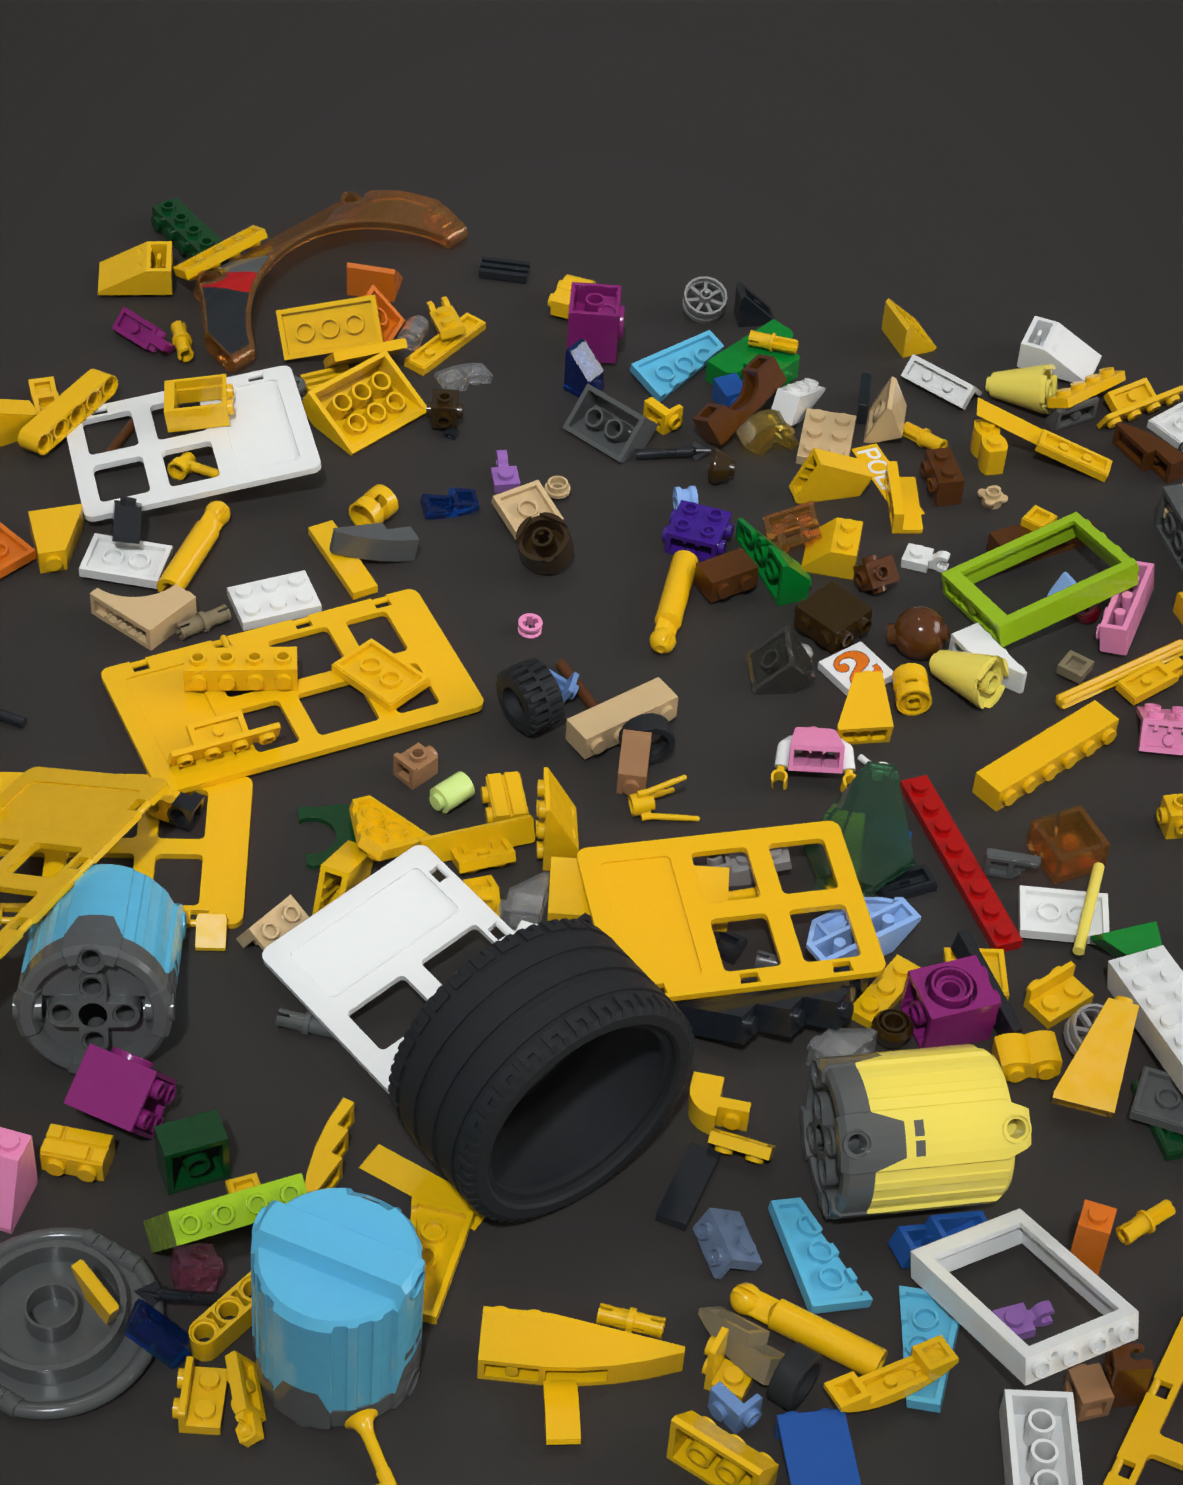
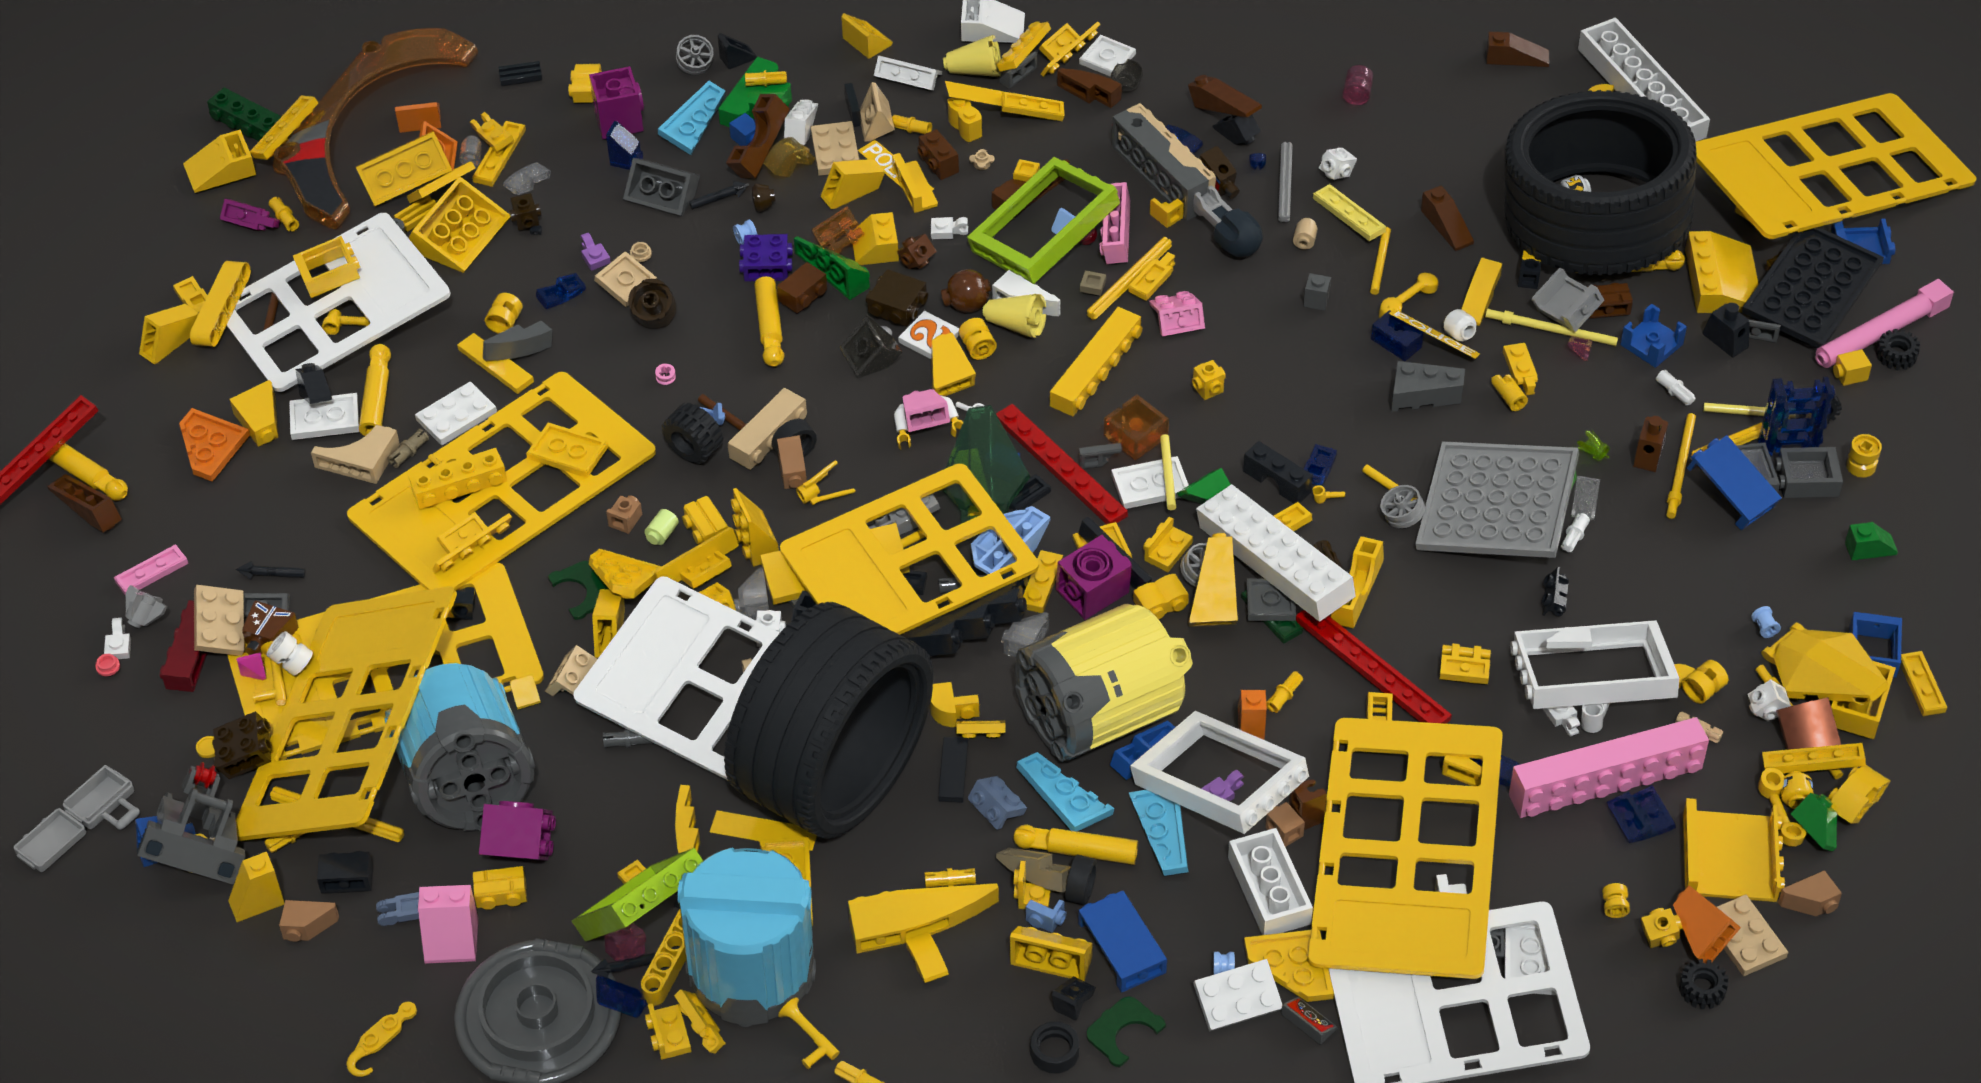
camera: 15 degrees left, 5 degrees up
(95, 1292) = (567, 981): yellow tile -> none
(192, 1152) = (587, 859): dark green brick -> none
(665, 418) = (695, 165): yellow bracket -> none
(893, 1027) = (1058, 606): dark brown cone -> none
(894, 1381) = (1151, 859): yellow slope -> none

